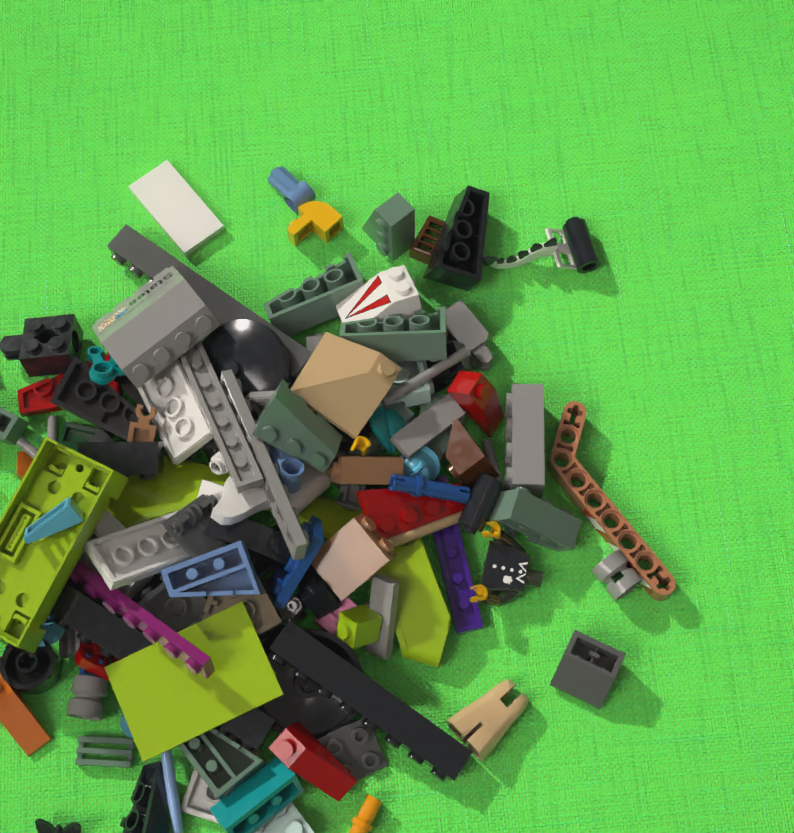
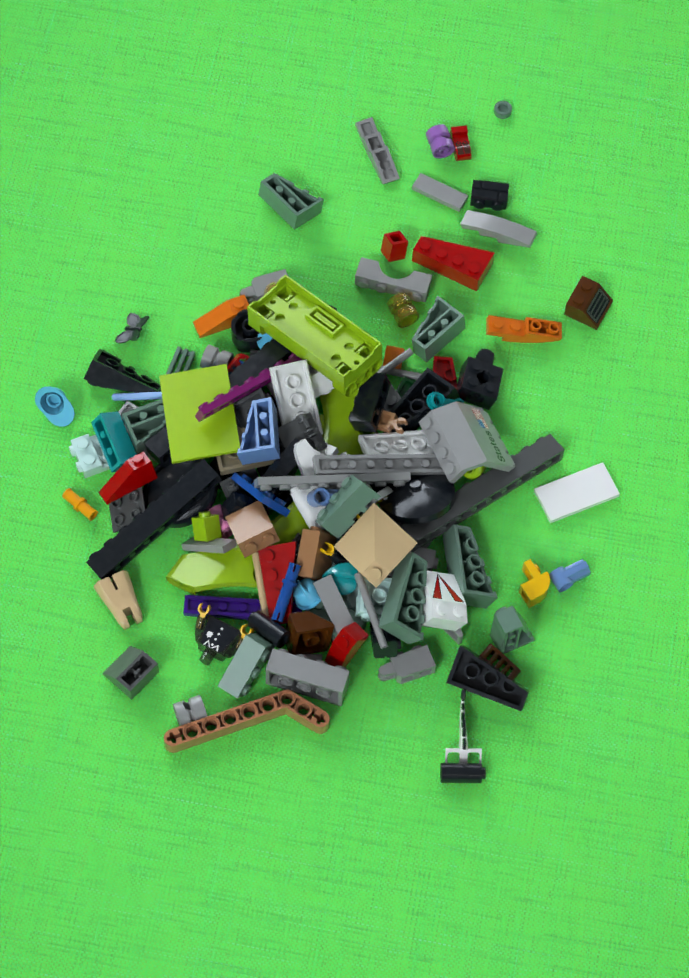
camera: 100 degrees right, 5 degrees down
(57, 519) = (321, 339): medium azure slope -> none

